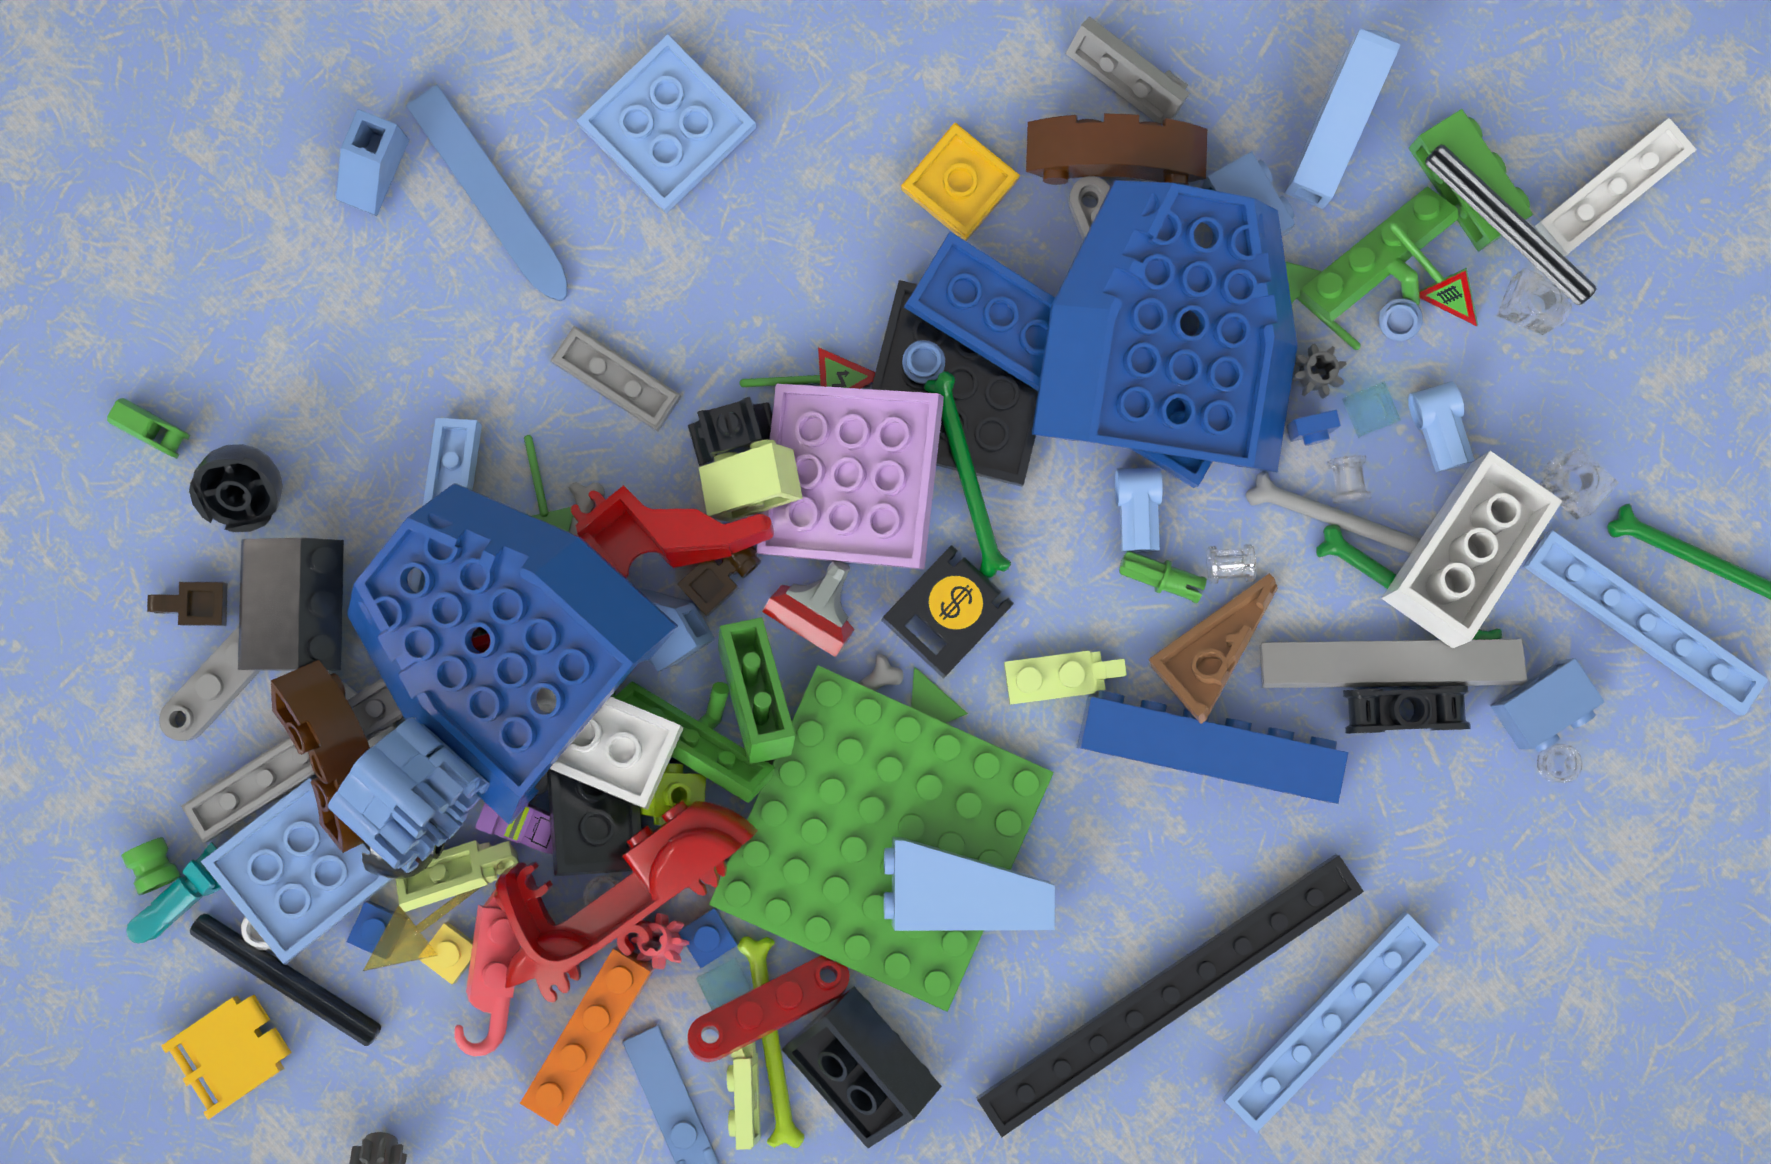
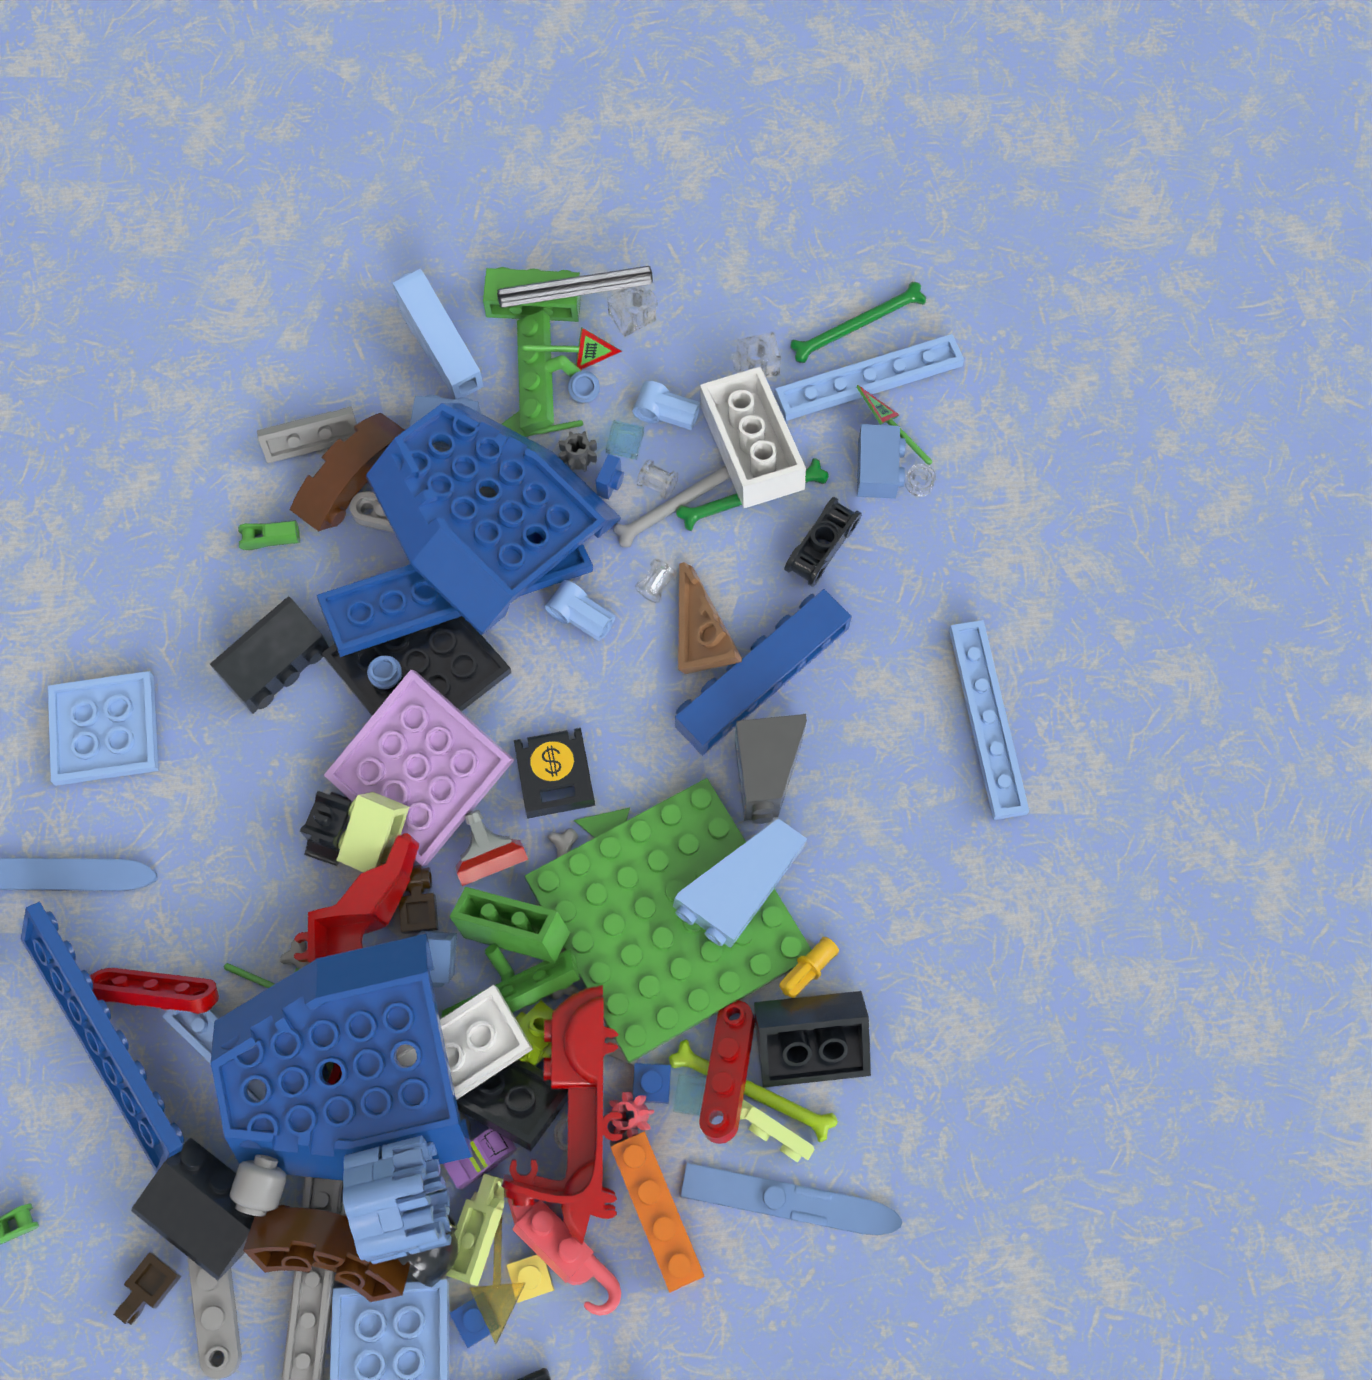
camera: 55 degrees left, 15 degrees down
(236, 487) = (94, 1189): black cylinder -> none
(336, 647) = (258, 1185): none -> light grey head
(367, 392) = (102, 1043): none -> blue plate
(450, 391) = (155, 990): none -> red plate
(616, 378) = (235, 879): light grey tile -> none
(833, 372) = (341, 737): bright green piece -> none
(856, 233) = (270, 655): none -> black slope
(929, 1016) = (808, 967): none -> yellow axle
(960, 182) = (291, 571): yellow plate -> none
(991, 124) = (273, 534): none -> bright green bar
(991, 557) = (542, 721): green piece -> none
(1059, 676) = (648, 732): yellowish green hinge -> none
(1108, 829) = (766, 761): none -> dark grey slope
(1162, 576) = (632, 626): bright green axle -> none
(1169, 995) = (902, 811): black plate -> none
(1392, 663) = (787, 532): light grey tile -> none
(1609, 670) = (886, 414): none -> bright green piece
(1616, 187) = (600, 221): white plate -> none

